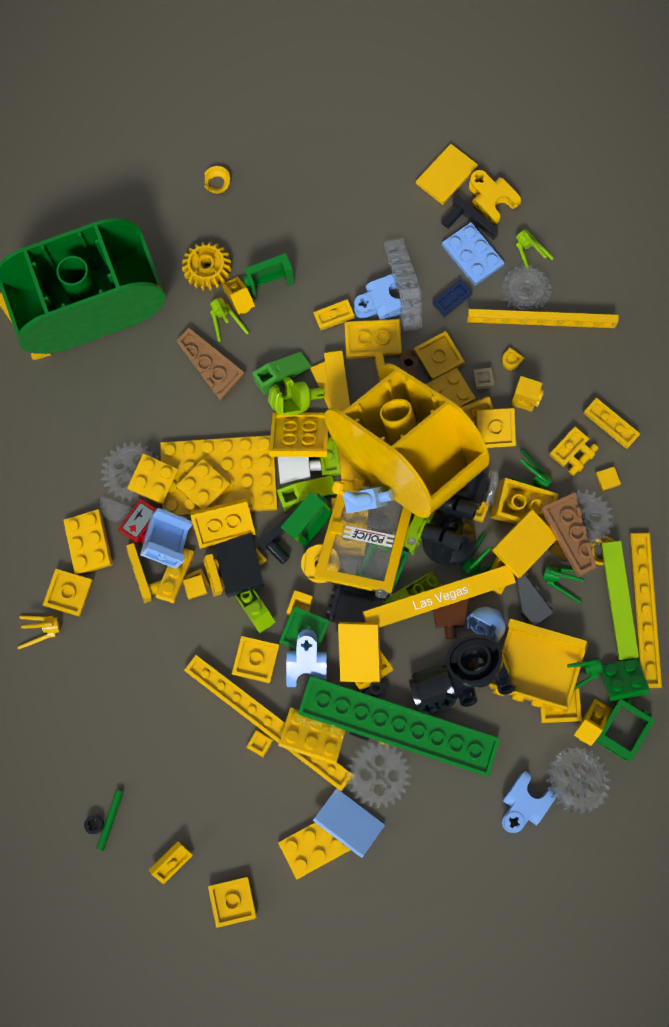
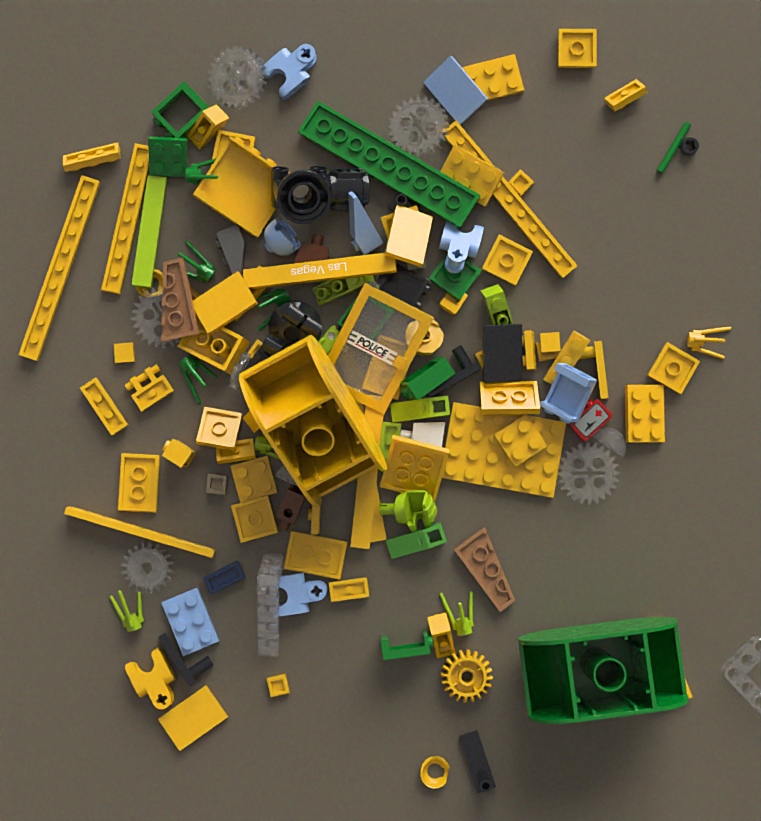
camera: 170 degrees left, 10 degrees up
(152, 478) = (569, 458): yellow plate -> none
(179, 196) = (477, 761): none -> black piece
(365, 498) = (367, 380): light blue torso -> none
(377, 219) = (278, 685): none -> yellow tile
(405, 649) = (361, 228): none -> light blue slope
(511, 359) = (183, 498): yellow tile -> none
(557, 363) = (139, 483): none -> yellow tile

